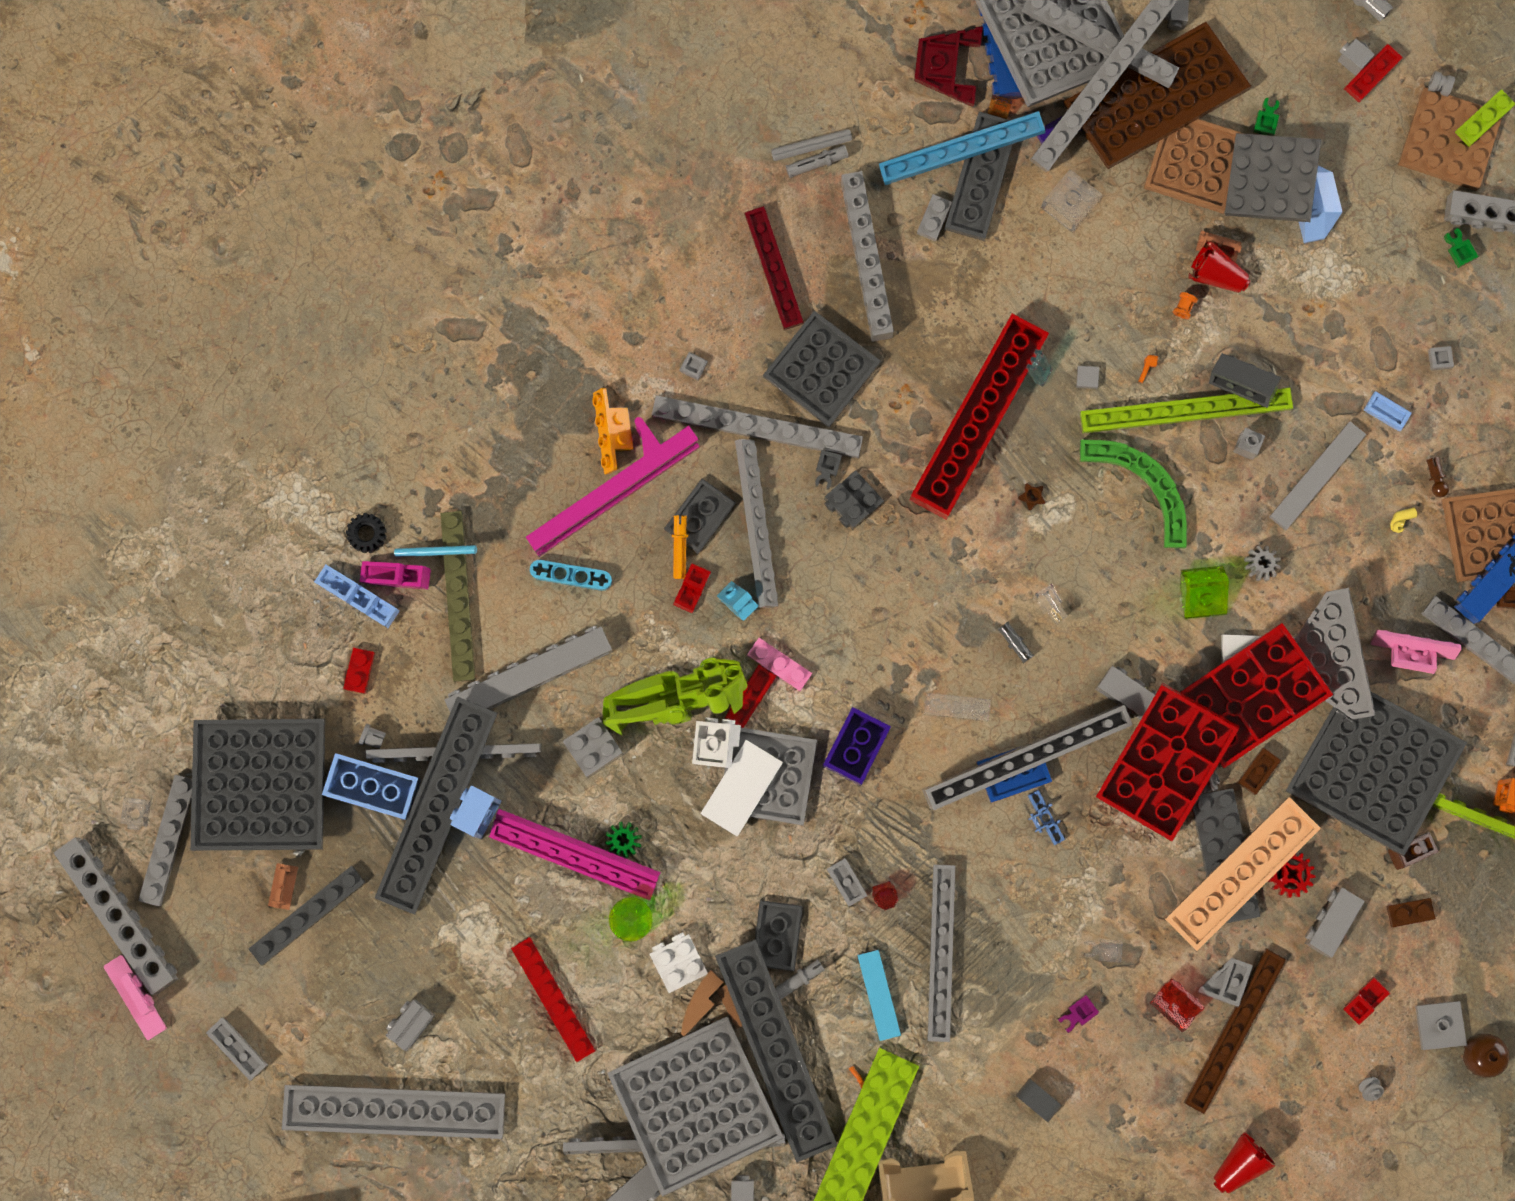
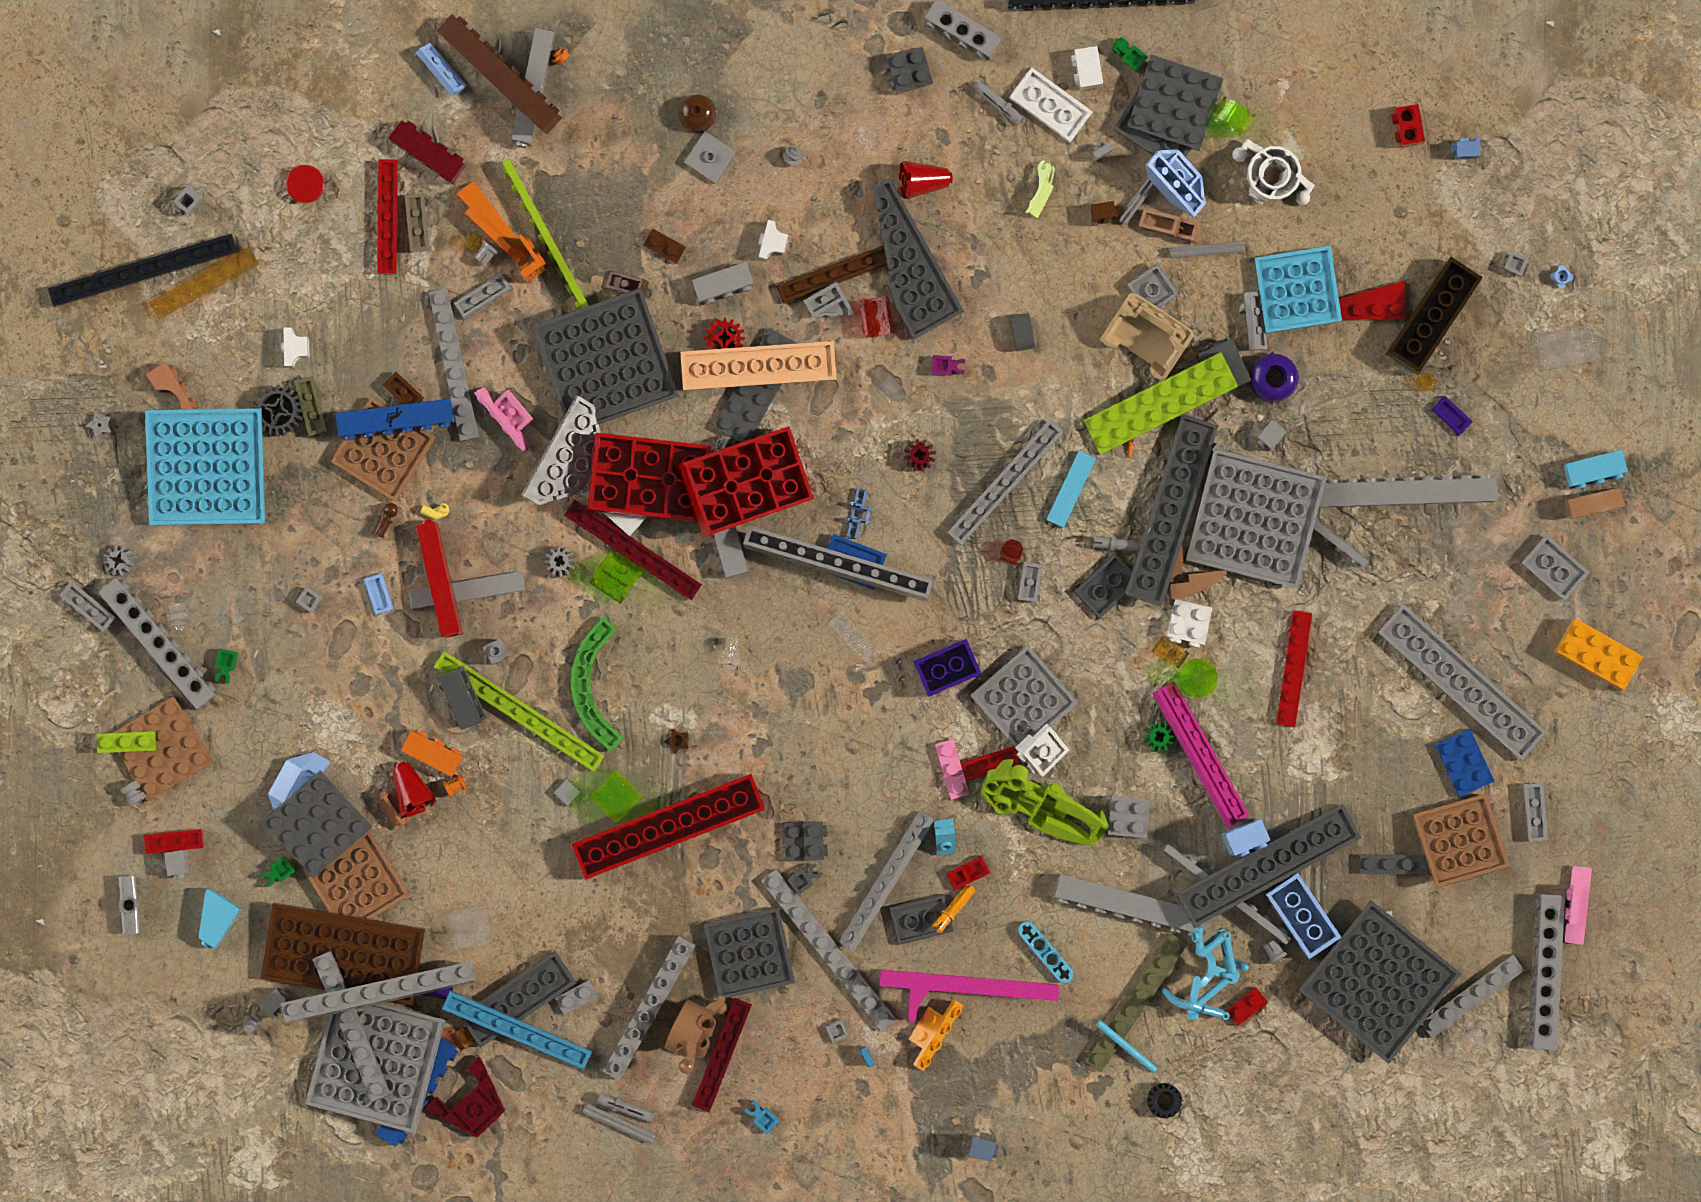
camera: 140 degrees left, 5 degrees up
(282, 967) = (1461, 841): none -> medium nougat plate
(283, 886) = (1417, 898): nougat hinge -> none
(335, 1041) = (1464, 763): none -> blue plate
(356, 596) = (1206, 1060): light blue slope -> none
(395, 575) = (1168, 1053): dark pink slope -> none
(395, 683) = (1229, 974): none -> medium azure piece
(409, 1025) = (1405, 731): light grey brick -> none
(489, 366) = (983, 1148): none -> sand blue brick
(650, 364) = (867, 1056): none -> dark azure tile
(673, 921) = (1170, 652): none -> clear yellow tile
(694, 244) = (764, 1119): none -> dark azure plate
(741, 788) = (1049, 704): white tile -> none
(818, 262) = (692, 1031): none -> medium nougat piece
(1015, 642) = (776, 649): dark grey pin -> none
(1036, 921) = (915, 460): none -> dark red gear
(1037, 371) = (599, 829): clear light blue tile -> none
(1044, 405) = (616, 796): none -> clear neon green brick
(1150, 361) = (513, 766): orange hand -> none
(1170, 1068) = (915, 277): none -> dark grey wing
(1208, 625) = (633, 550): none -> dark red plate
(1227, 316) = (432, 752): none -> orange brick
(1259, 771) = (685, 424): reddish brown plate -> none
(1284, 40) = (216, 918): none -> medium azure slope
(1323, 995) = (772, 241): none -> white brick
(1350, 463) = (439, 579): none -> red brick
(1365, 1000) = (745, 214): red slope -> none

